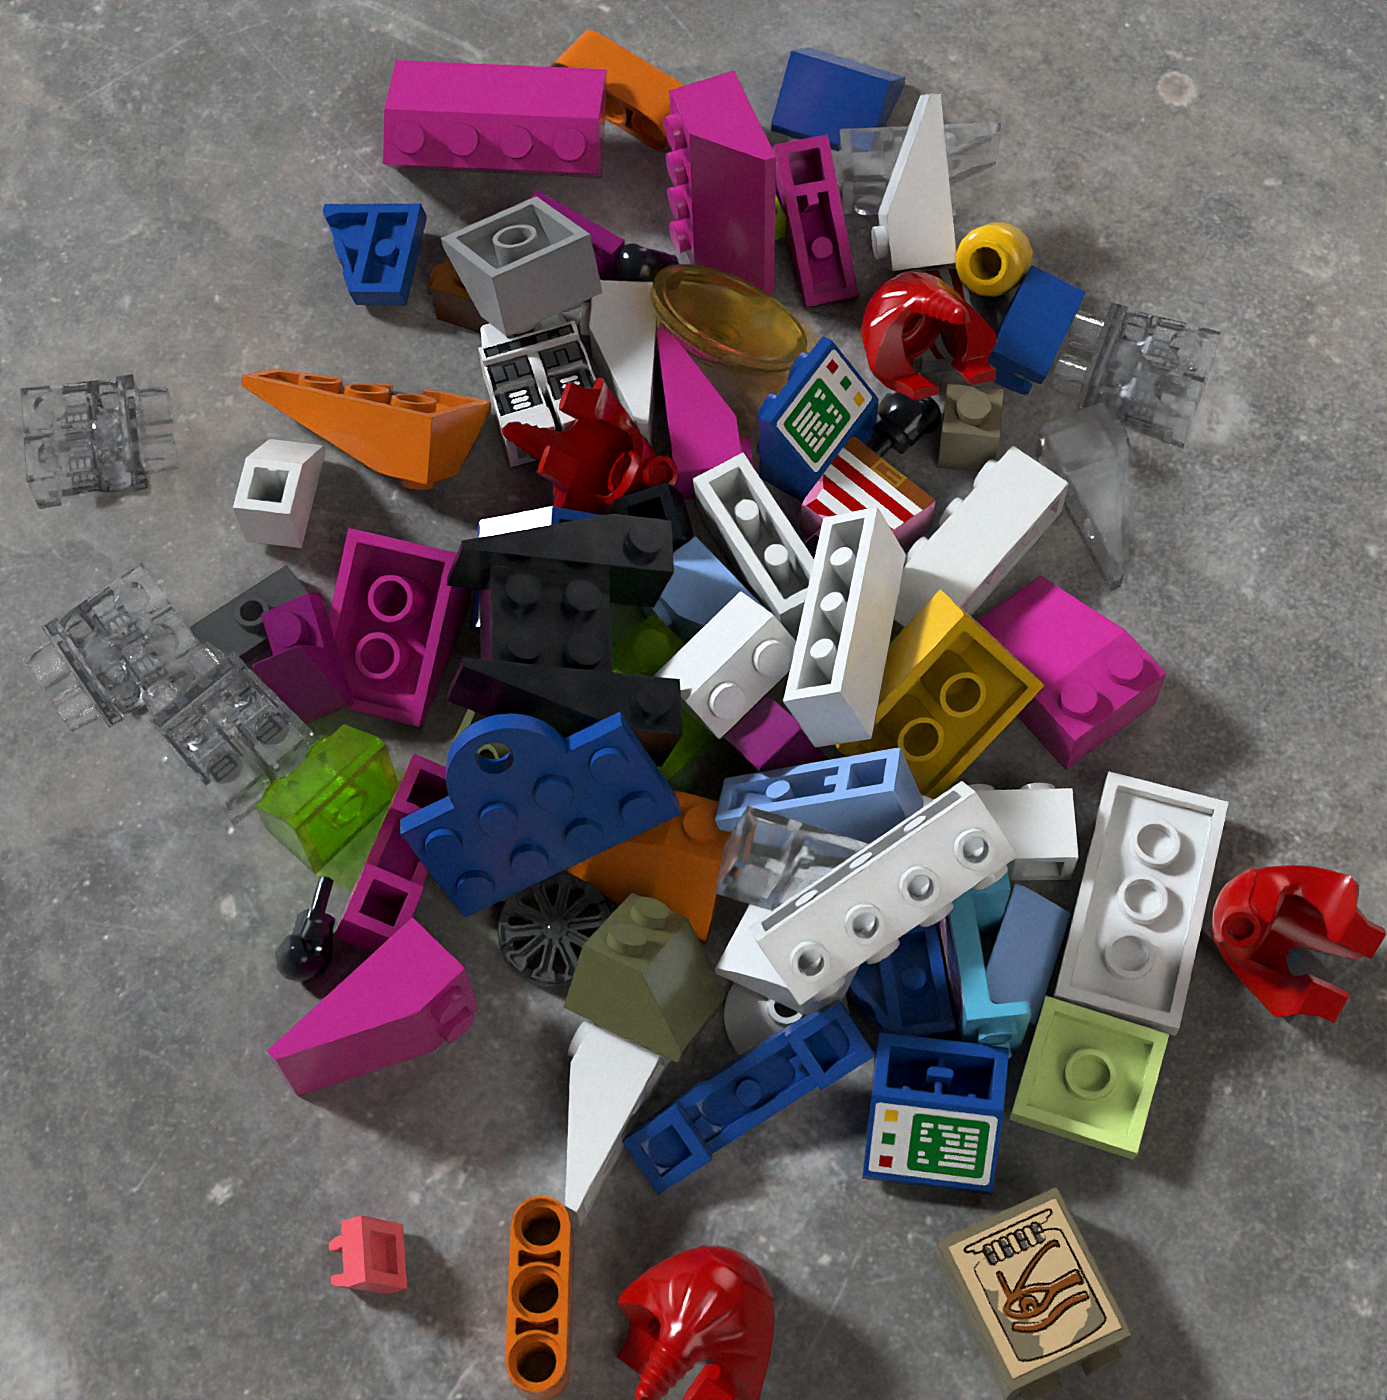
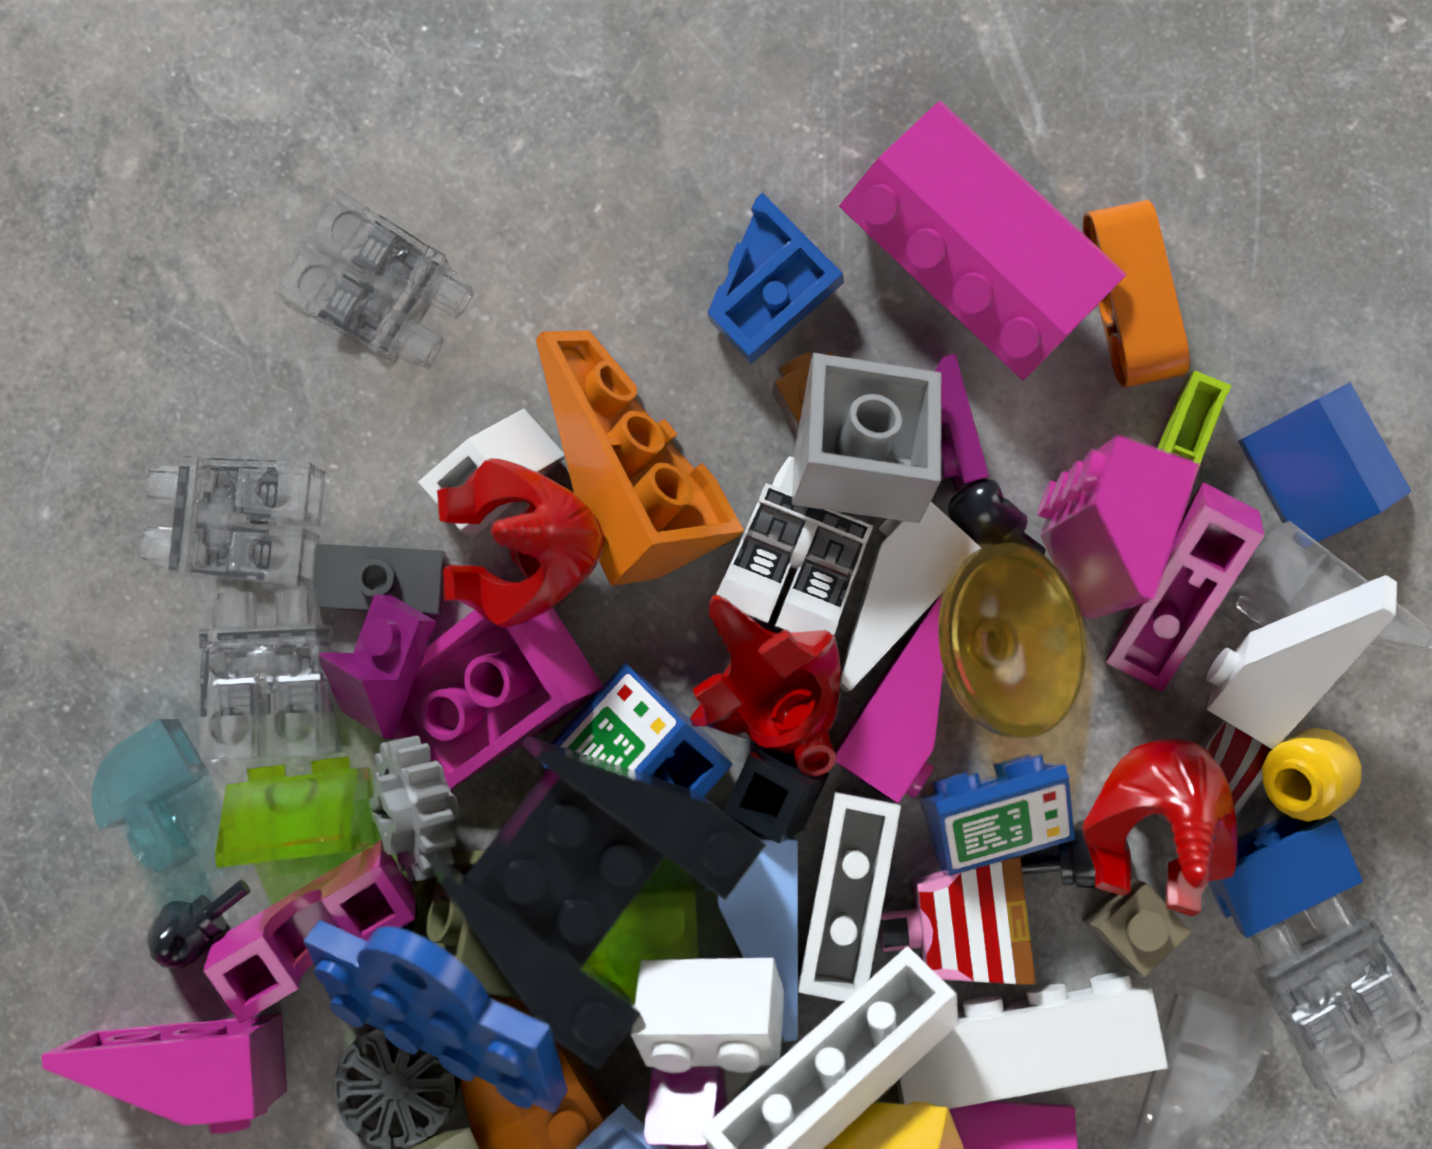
camera: 35 degrees right, 20 degrees up
(188, 870) = (134, 790): none -> clear light blue brick
(360, 483) = (551, 541): none -> red piece
(405, 709) = (413, 807): none -> light grey gear

